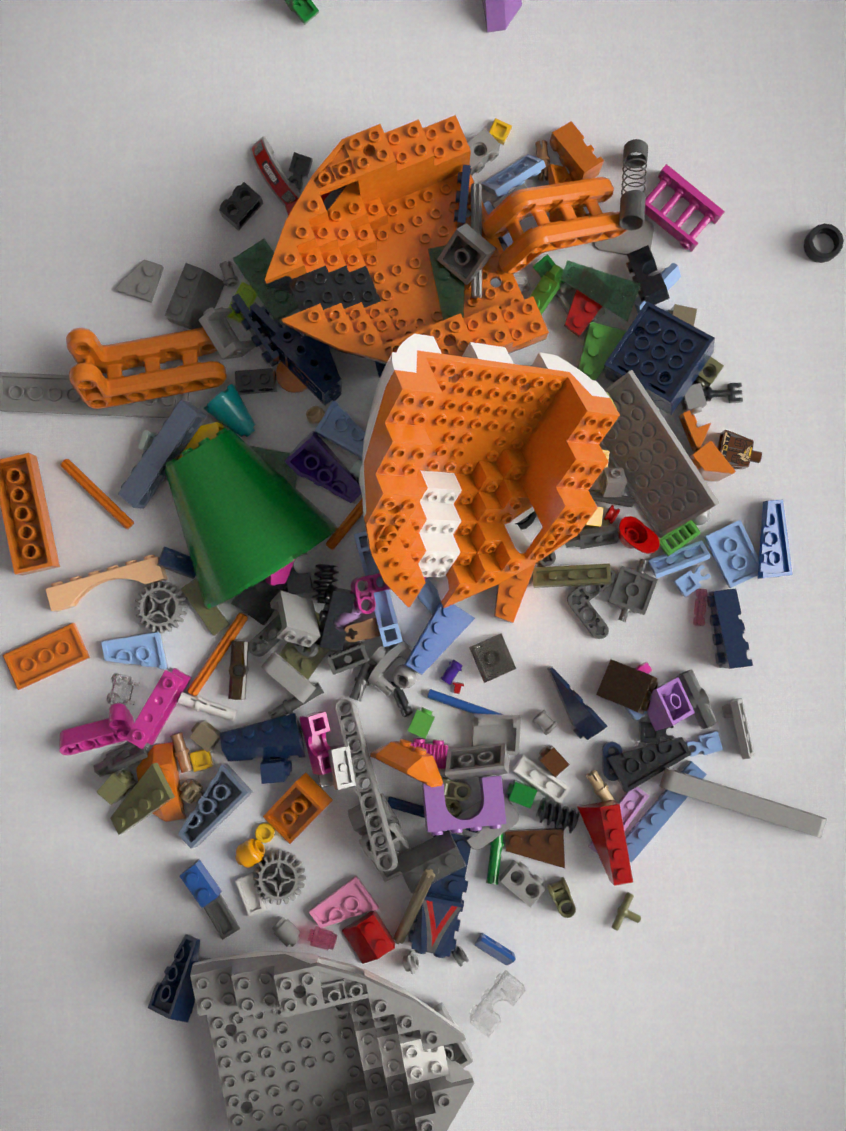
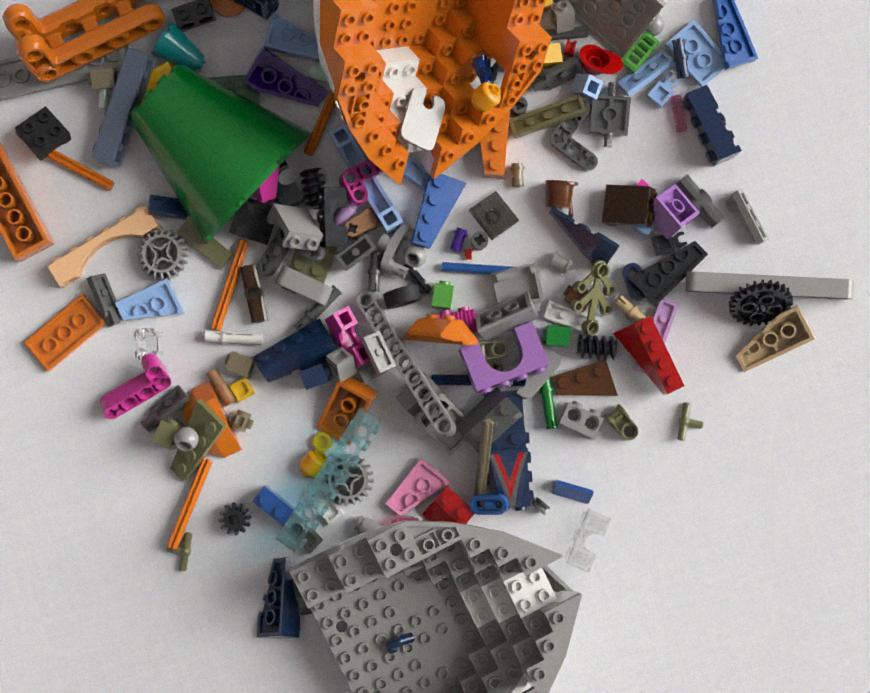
camera: 10 degrees left, 0 degrees up
(77, 457) = (42, 133): none -> black brick
(92, 634) = (104, 298): none -> dark grey hinge
(101, 902) = (184, 551): none -> olive piece
(118, 858) = (189, 504): none -> orange axle
(130, 799) = (186, 439): none -> light grey piece
(149, 420) = (102, 78): none -> dark tan brick
(153, 880) = (237, 525): none -> black gear
(158, 708) = (188, 347): dark pink fence -> none
(205, 921) = (287, 535): none -> clear light blue brick
(216, 804) = (267, 428): sand blue wedge -> none
(278, 1062) = (398, 641): none -> dark blue arm
(303, 766) = (341, 364): none -> light grey brick
(315, 414) = (259, 31): tan plate -> none
(381, 714) = (402, 296): none -> black tyre
(410, 945) = (490, 504): none -> blue plate
(410, 962) = (495, 523): light grey plate -> none
(445, 554) = (419, 123): none -> piece
(477, 676) = (484, 237): none -> dark grey bush
(516, 547) = (486, 96): none -> light orange head
(521, 516) = (482, 67): none -> clear blue cone
(526, 623) = (517, 174): none -> dark tan pin
(562, 656) = (559, 194): none -> reddish brown hat
(579, 746) = (598, 274): none -> olive plant
(617, 557) = (587, 86): none -> light blue brick
(657, 816) = (692, 322): medium blue plate -> none
(707, 743) = (721, 240): light blue plate -> none
(717, 555) = (680, 58): none -> dark blue pin
(730, 819) = (748, 308): none -> black gear
(741, 856) = (780, 336): none -> tan wedge

